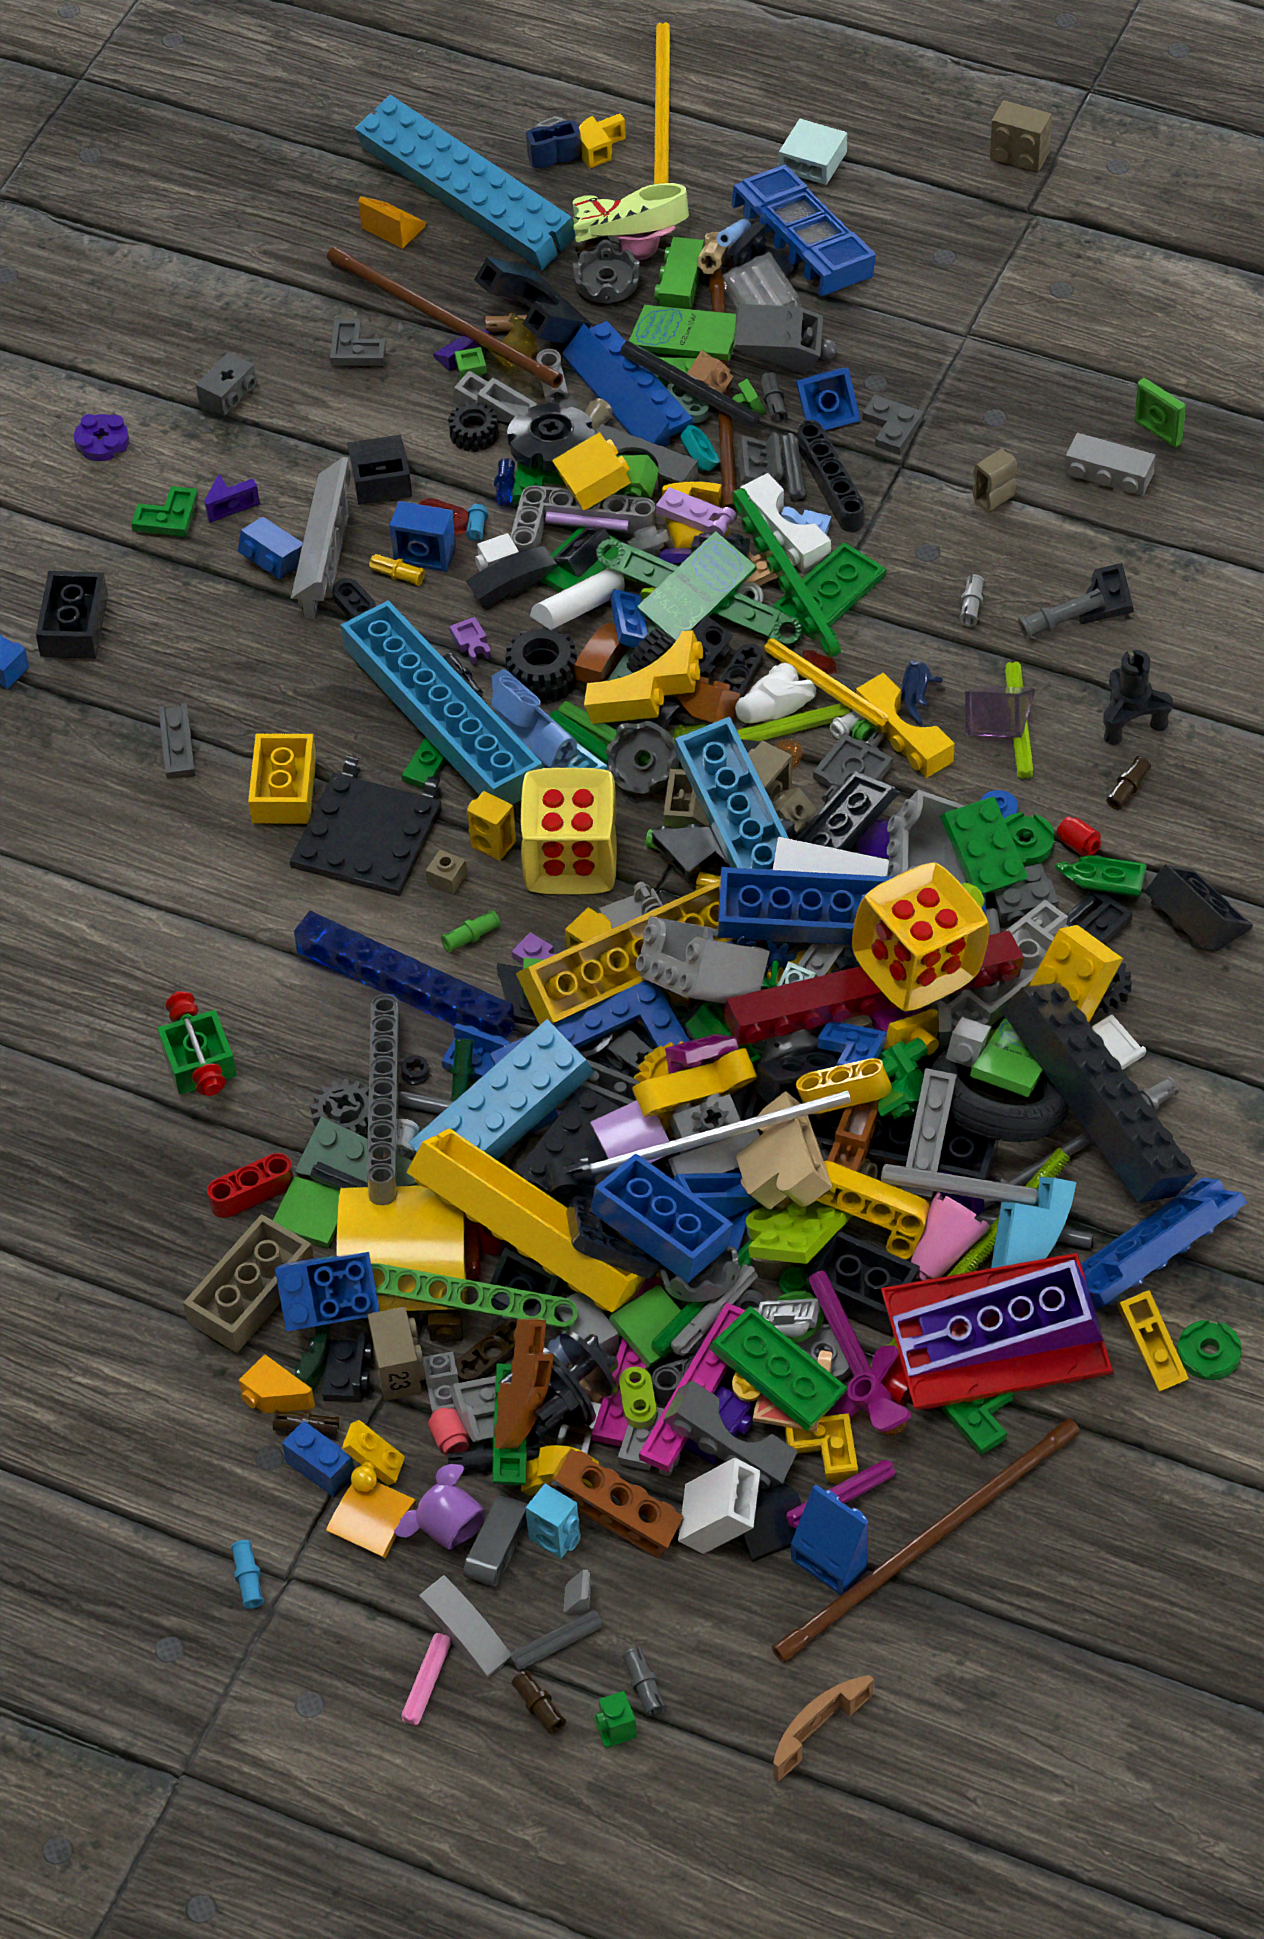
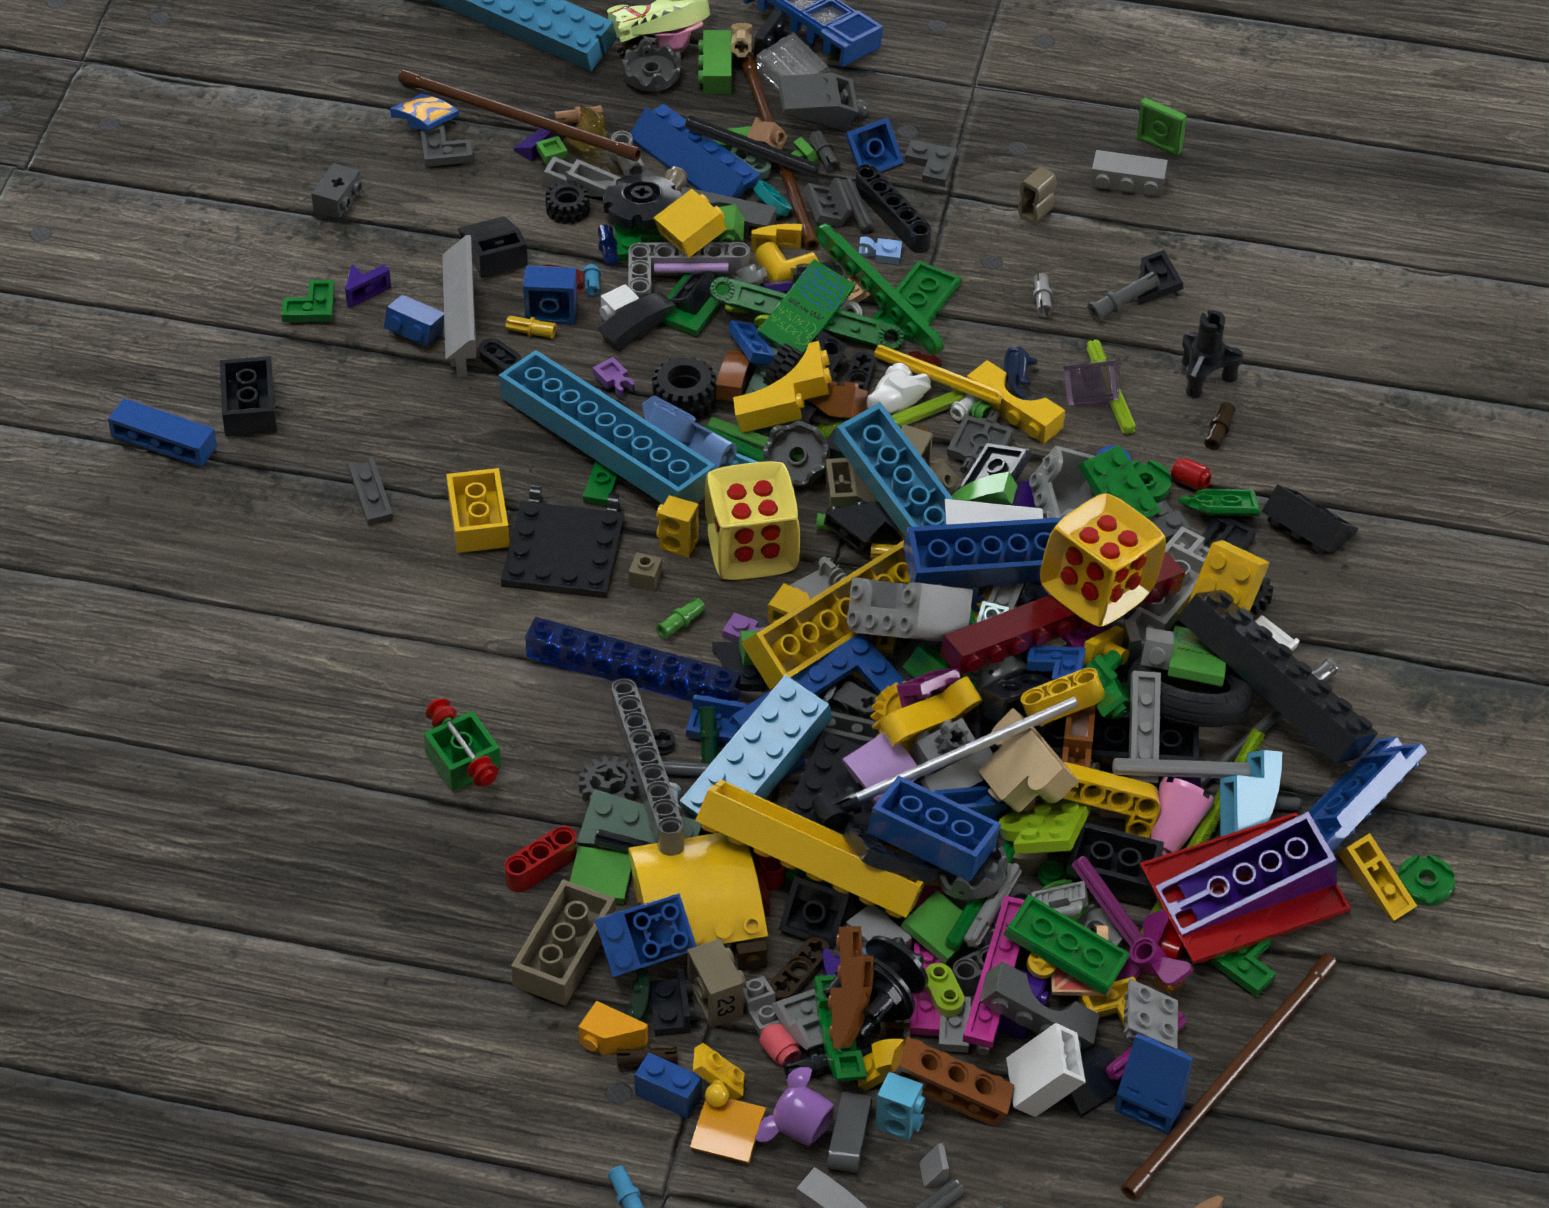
camera: 15 degrees left, 5 degrees down
(92, 426) = (240, 238): dark purple plate -> none
(344, 300) = (424, 111): none -> slope
(389, 221) = (446, 45): light orange slope -> none
(484, 1302) = (787, 917): bright green beam -> none
(550, 314) = (609, 100): black arch -> none
(577, 599) = (702, 331): white brick -> none
(685, 332) = (735, 105): bright green tile -> none
(695, 512) = (785, 248): lavender plate -> none
(732, 232) = (753, 24): light blue piece -> none
(803, 544) = (887, 262): white arch -> none
(834, 831) = (992, 489): none -> bright green slope
(852, 1461) = (1150, 1015): none -> light grey hinge

